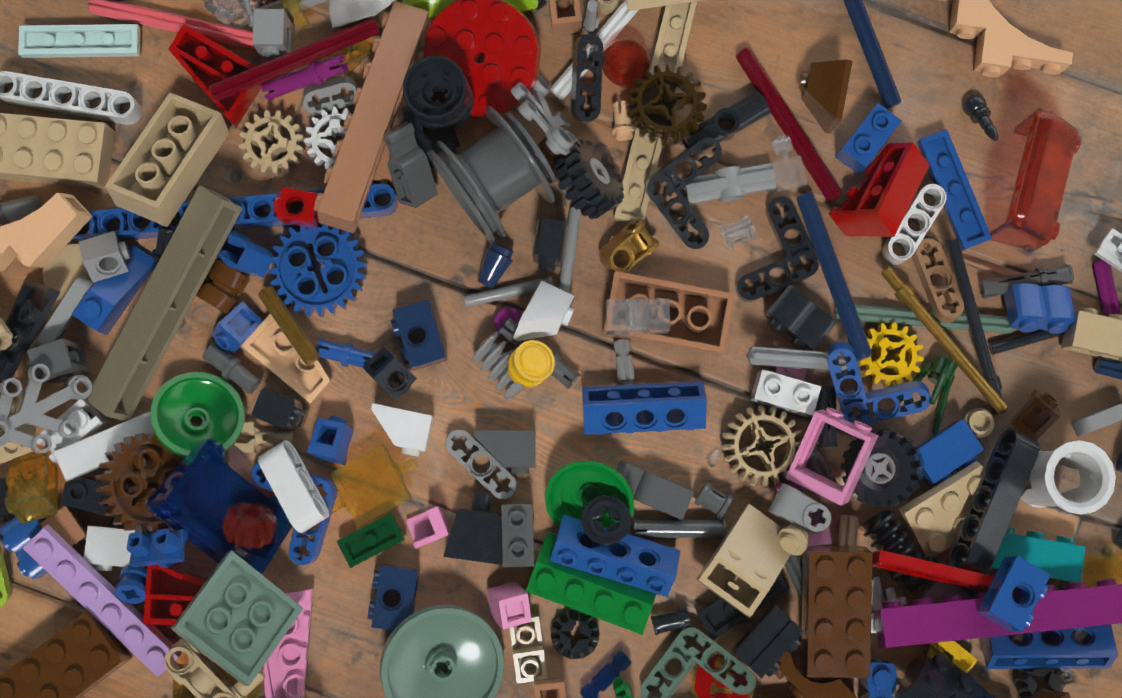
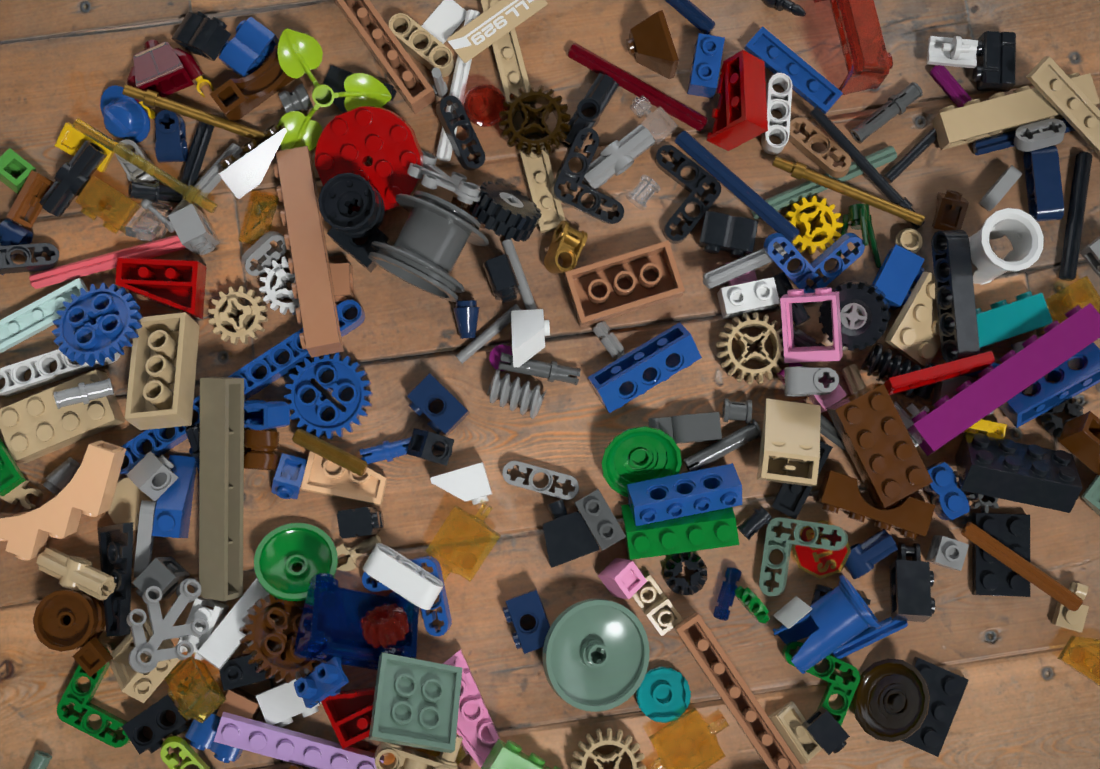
camera: 25 degrees left, 0 degrees up
(79, 140) = (83, 393): none -> light grey pin
(129, 79) = (97, 324): none -> blue gear
(132, 584) = (316, 723): blue wheel -> none
(231, 368) = (302, 510): dark grey pin -> none
(293, 59) = (221, 240): dark red axle -> none
(306, 217) = (299, 359): red brick -> none
(316, 73) = (243, 241): magenta pin -> none
(322, 438) = (404, 524): blue brick -> none
(371, 540) = (486, 586): dark green plate -> none
(409, 167) = (359, 276): dark grey piece -> none
(428, 527) = (525, 552): bright pink panel -> none
(511, 448) = (557, 455): dark grey slope -> none
(531, 363) = (538, 379): yellow wheel -> none
(616, 509) = (668, 459): black gear -> none
(623, 129) = (508, 154): light nougat pin -> none
(637, 316) = (603, 297): clear brick -> none
(768, 641) = (840, 496): black brick -> none
(793, 539) = (817, 407): tan plate -> none
(998, 601) = (1000, 368): blue brick -> none
(1039, 307) = (908, 127): blue brick -> none

